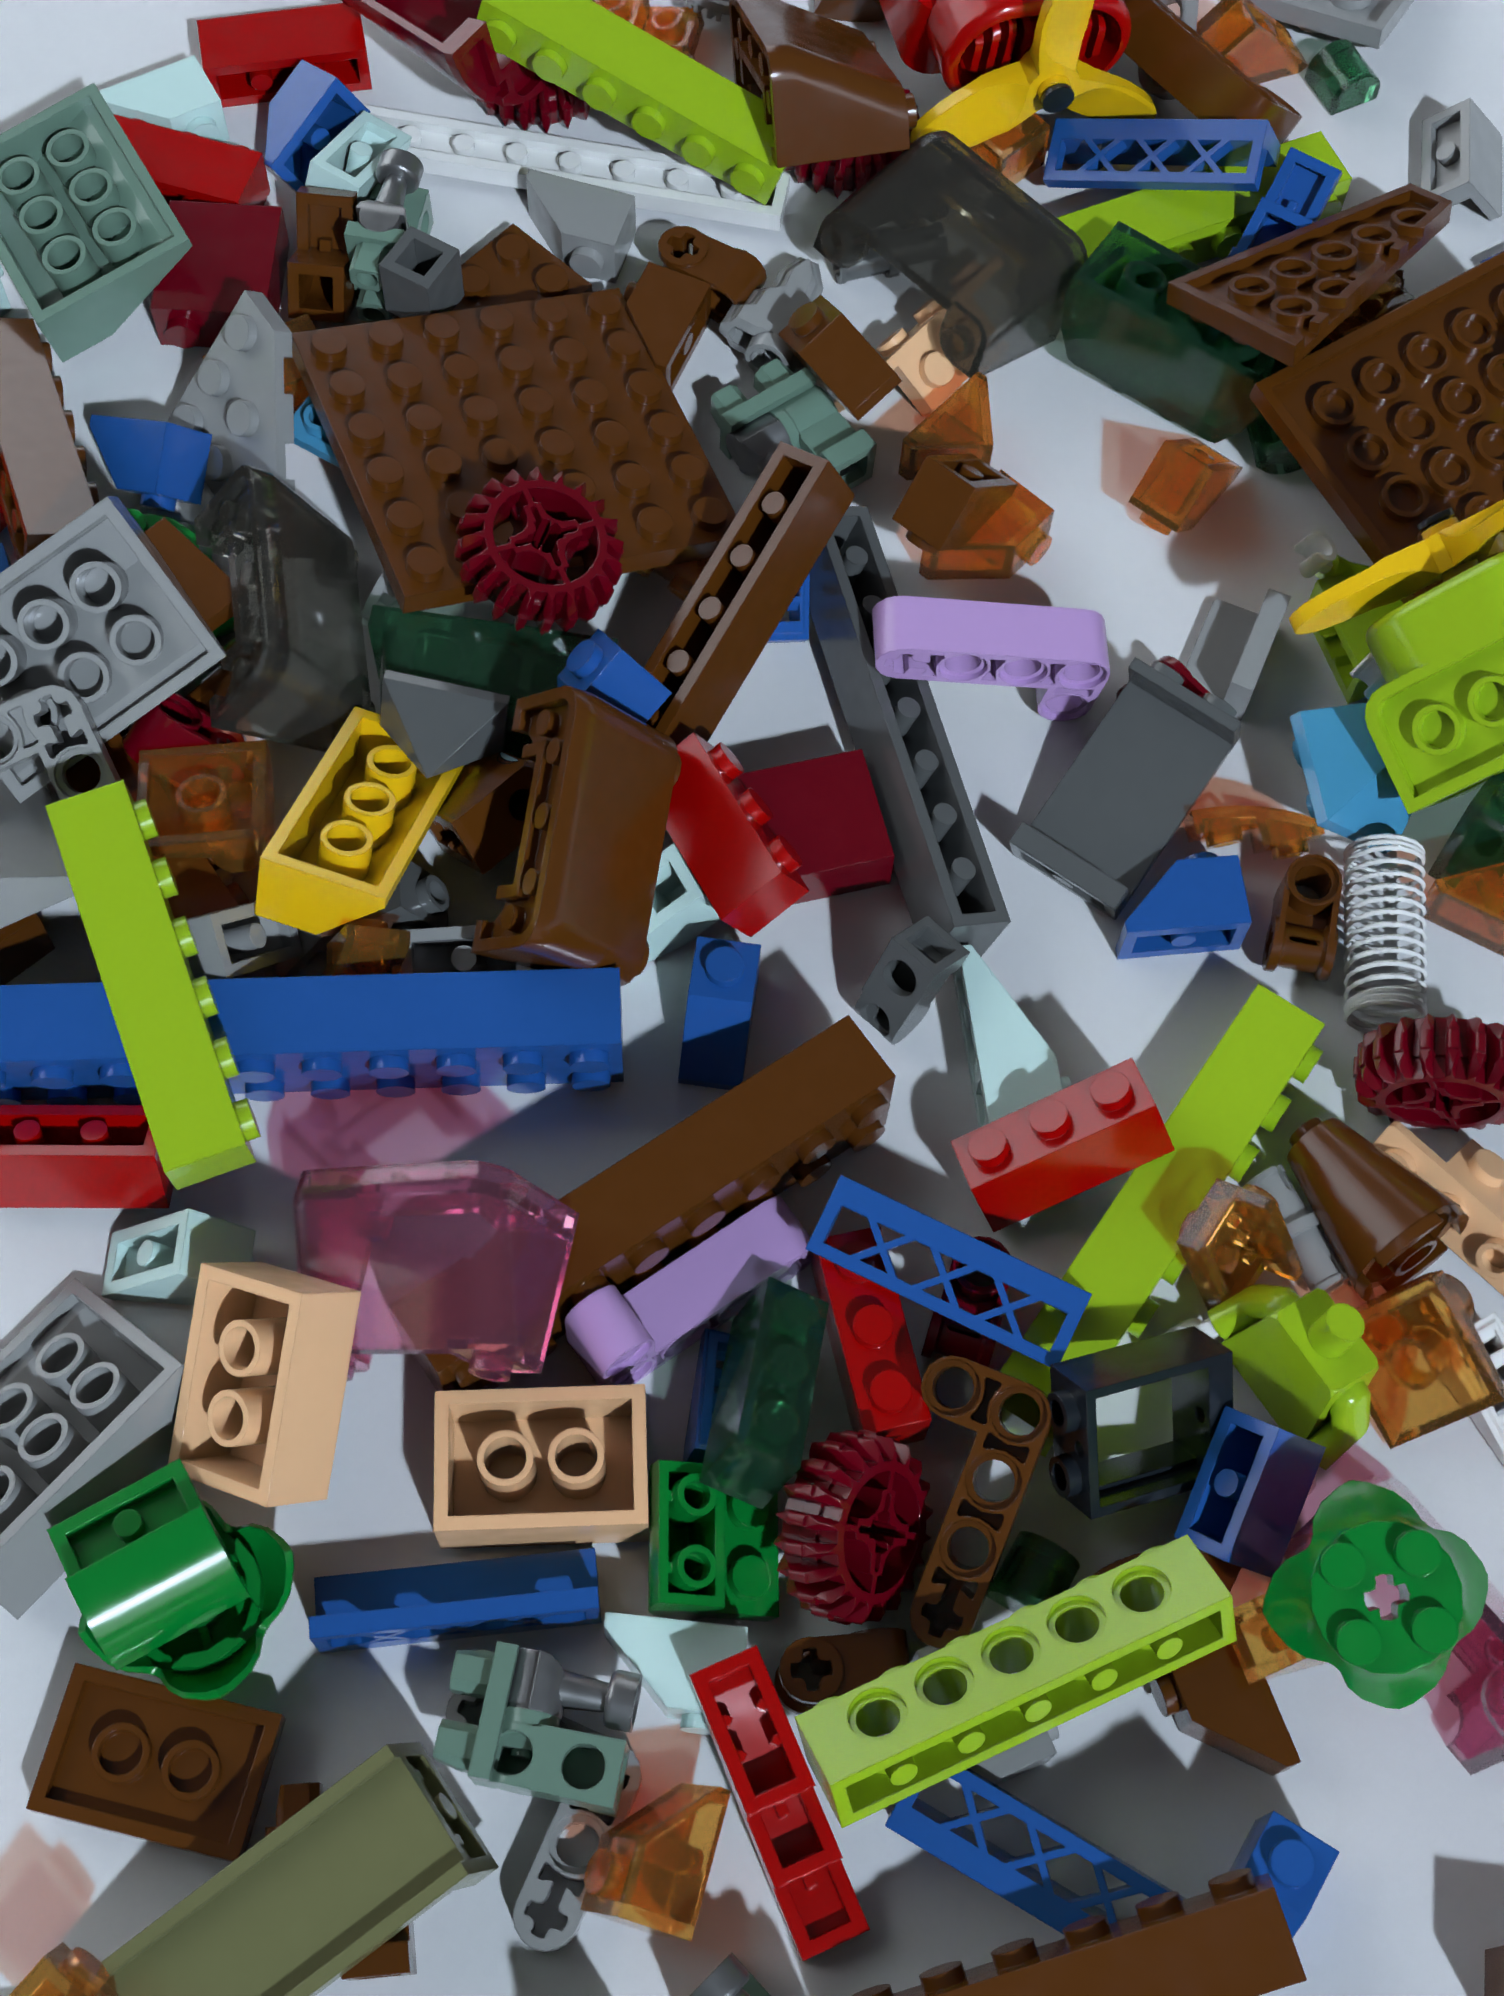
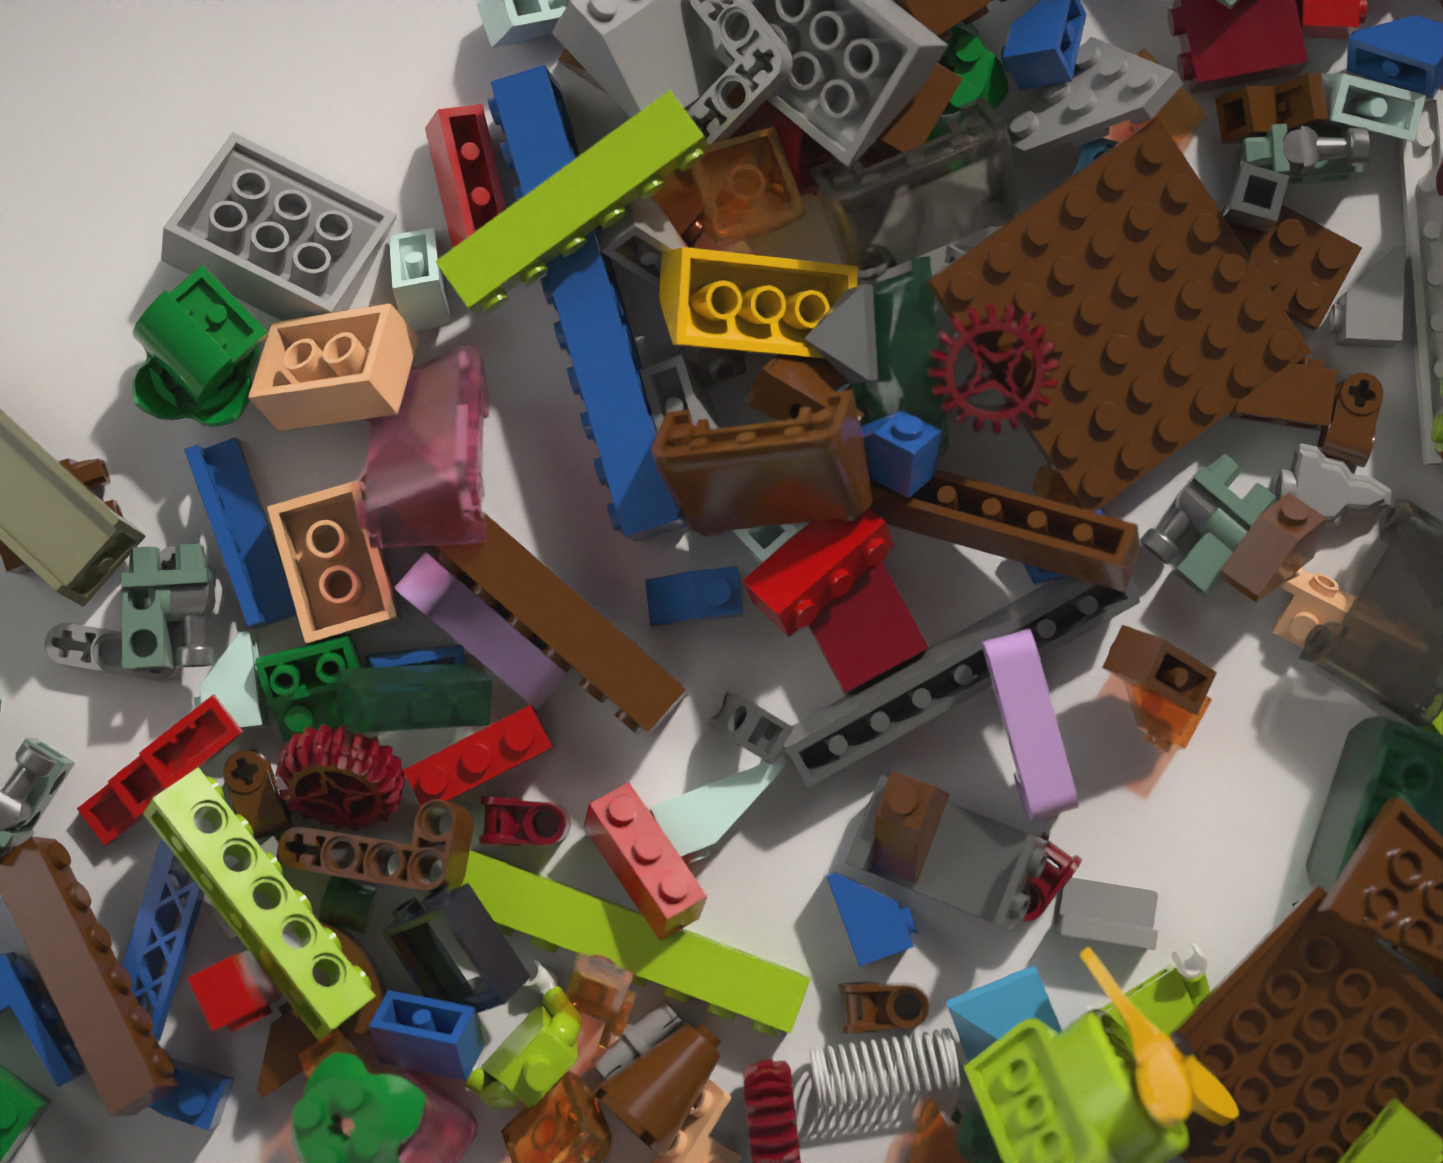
camera: 90 degrees right, 20 degrees up
(156, 1764) = (93, 377): reddish brown plate -> none
(366, 949) = (650, 335): clear orange slope -> none
(658, 1862) = (109, 704): clear orange slope -> none
(955, 427) = (1247, 657): clear orange slope -> none
(956, 1246) = (541, 806): blue fence -> none
(1082, 824) = (906, 825): none -> reddish brown slope
(1139, 1747) = (234, 992): none -> red brick
(1182, 485) = (1254, 849): clear orange slope -> none
(1269, 829) = (953, 972): clear orange slope -> none

